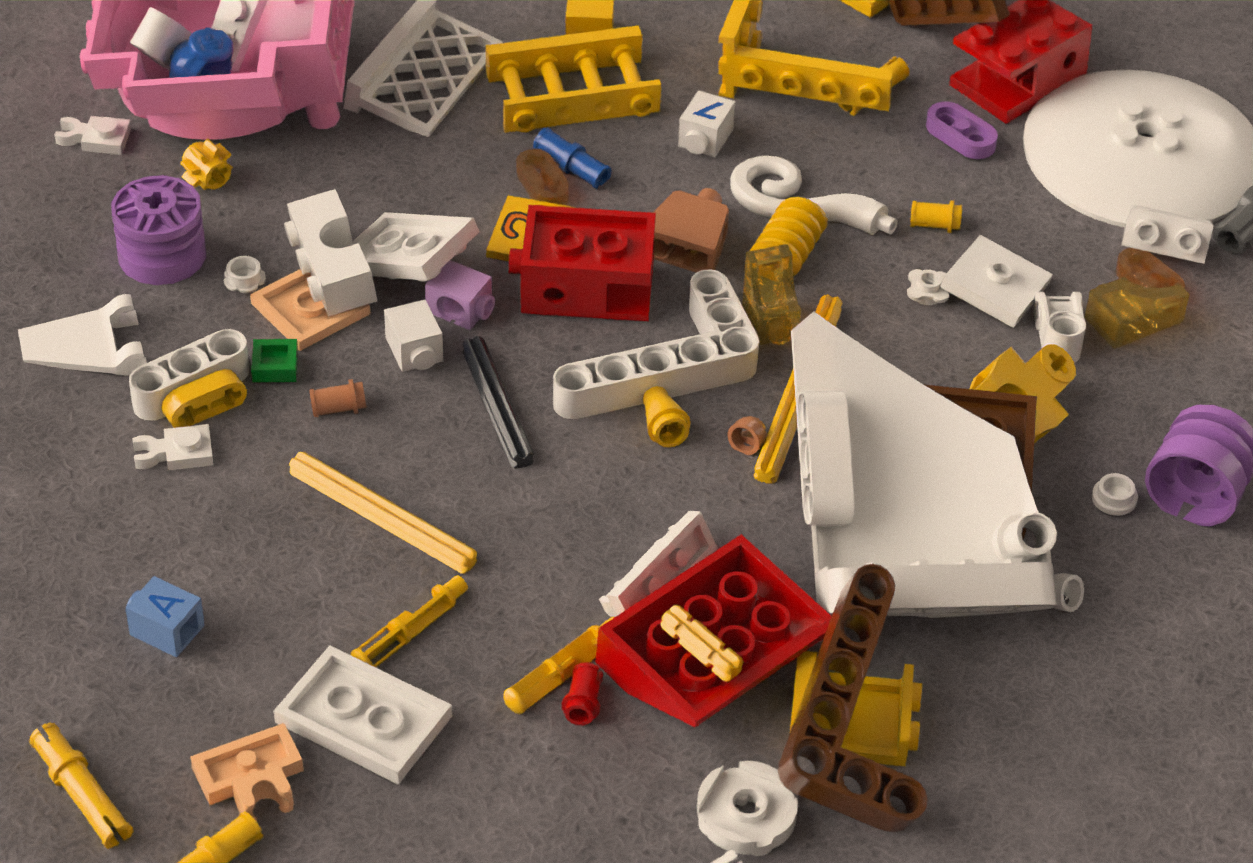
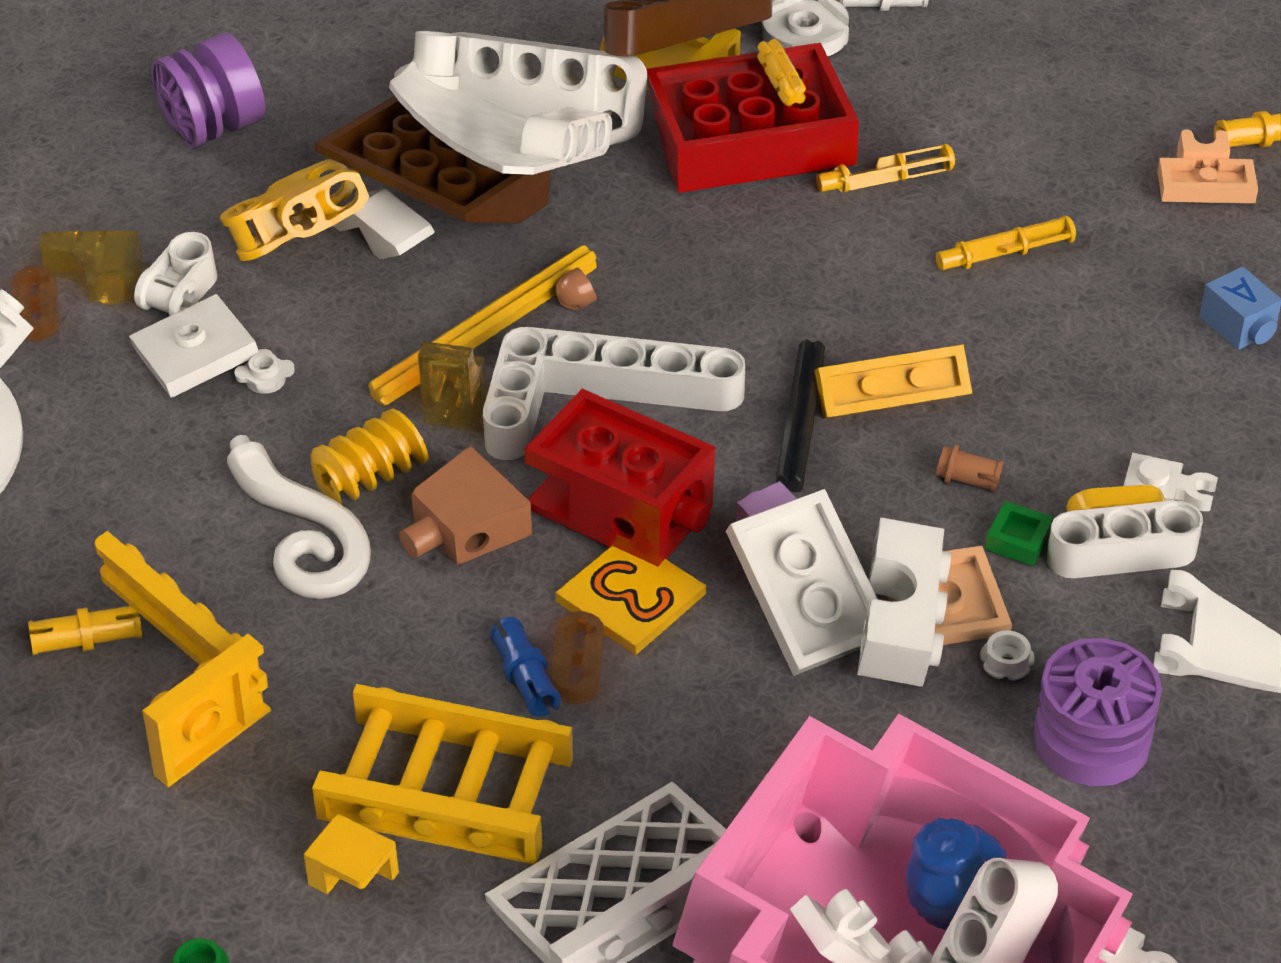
camera: 150 degrees left, 0 degrees up
(363, 714) = (1088, 183): white plate -> none
(383, 512) = (982, 351): yellow axle -> none
(413, 336) = (855, 494): white brick -> none
(436, 443) = (893, 381): none -> yellow plate
(582, 701) = (891, 131): red pin -> none
(665, 418) = (648, 319): yellow cone -> none
(668, 557) = (754, 200): plate -> none
(706, 124) = (334, 640): white brick -> none
(936, 215) = (169, 434): yellow pin -> none
(966, 131) = (46, 533): medium lavender plate -> none
(1115, 494) = (290, 133): white plate -> none

